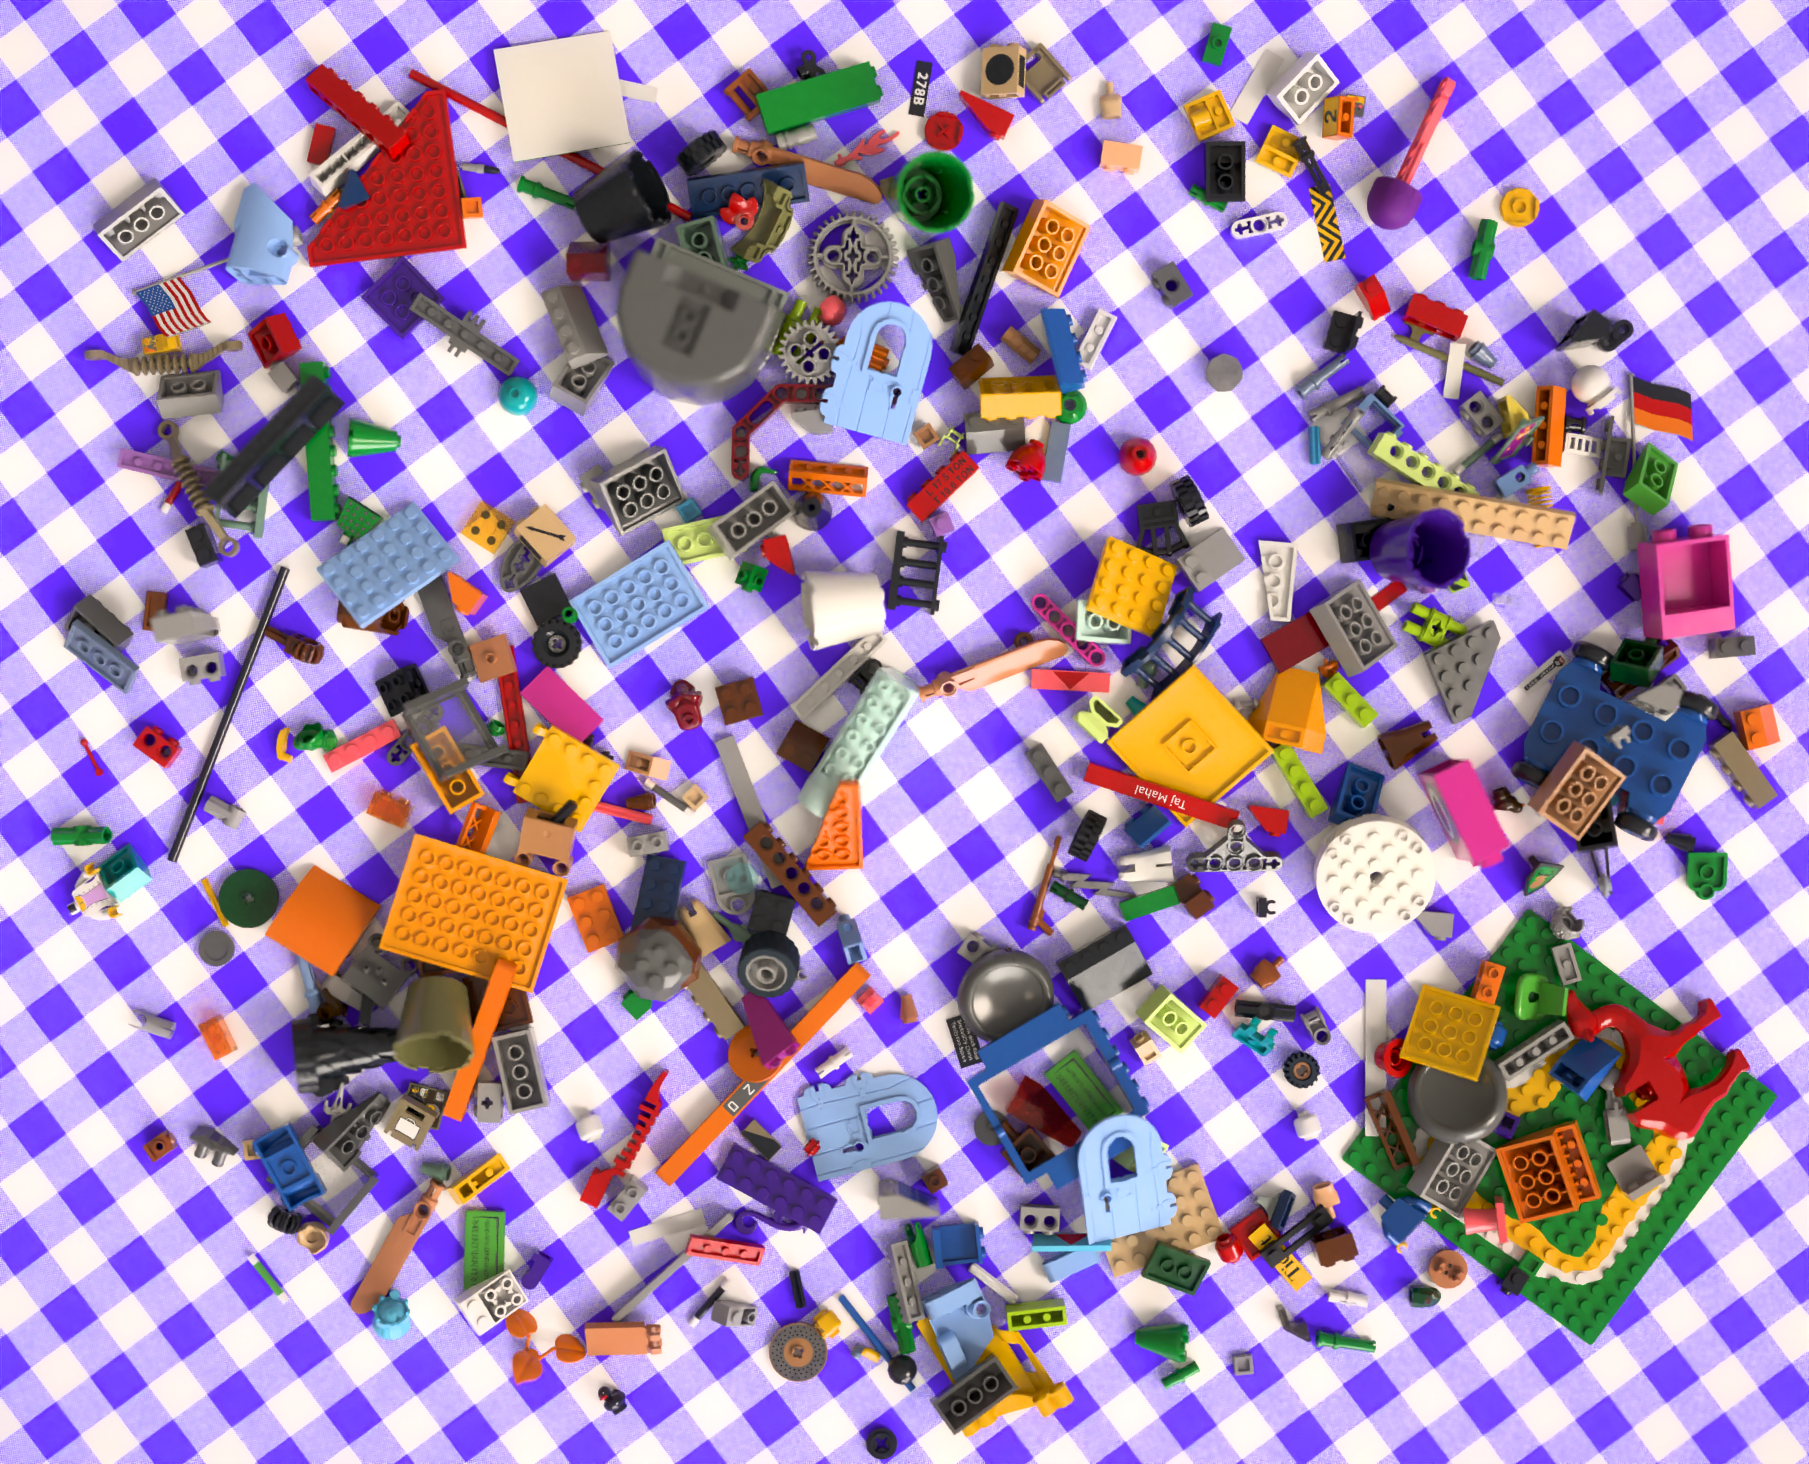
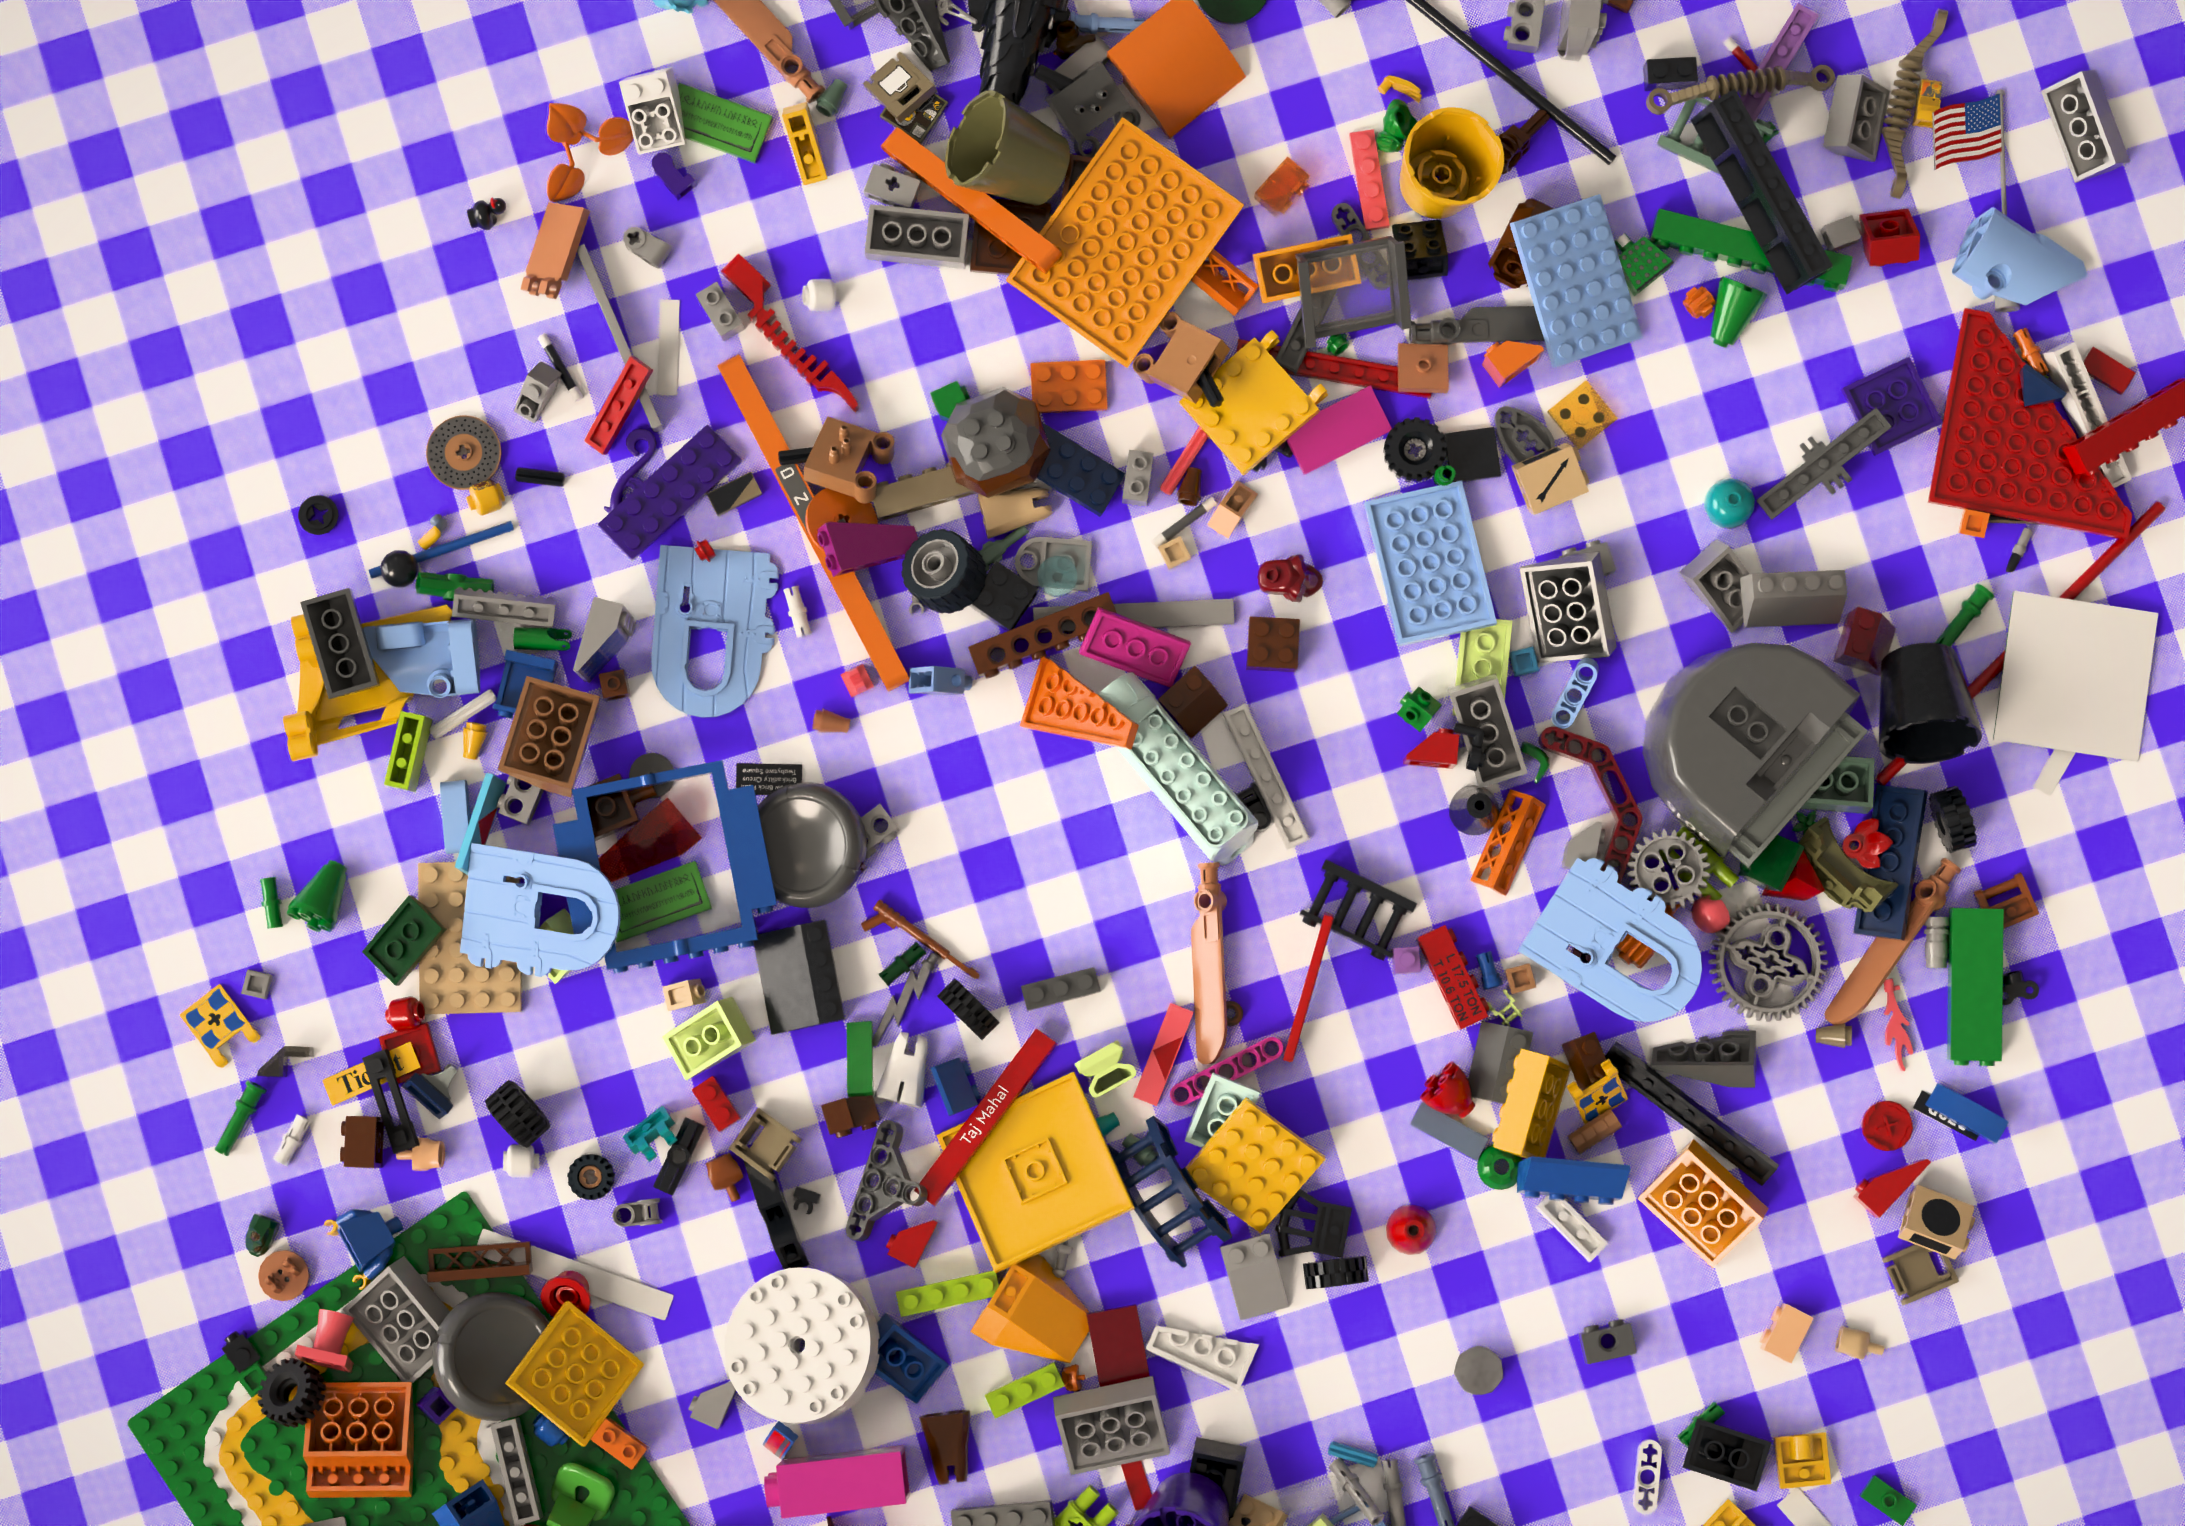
camera: 110 degrees right, 5 degrees down
(317, 688) = (1460, 152): none -> yellow cone
(372, 467) = (1699, 302): none -> orange gear
(597, 1267) = (650, 249): none -> light grey piece
(708, 1070) = (840, 457): none -> medium nougat piece
(710, 464) = (1572, 704): none -> light blue beam
(774, 522) = (1475, 756): none -> black plate
(777, 803) = (1134, 647): none -> dark pink tile
(779, 274) = (1773, 865): none -> dark green slope
(783, 258) = (1801, 884): none -> red slope
(841, 606) = (1346, 803): white cone -> none
(915, 74) = (1967, 1113): none -> blue slope
(928, 461) = (1490, 977): none -> blue pin
(944, 188) = (1809, 1097): green cone -> none
(980, 590) = (1308, 987): none -> red tile
(990, 1214) = (549, 735): none -> medium nougat slope
(994, 348) = (1600, 1096): none -> yellow flag
(1009, 1269) = (473, 739): none -> yellow cone
(1235, 945) = (771, 1147): none -> dark tan container
(1275, 1140) = (517, 1113): none -> black tyre
(1279, 1384) = (215, 1021): none -> yellow flag
(1281, 926) = (777, 1219): none -> black slope
(1446, 865) = (780, 1440): none -> slope
(1530, 1244) = (279, 1386): none -> black tyre

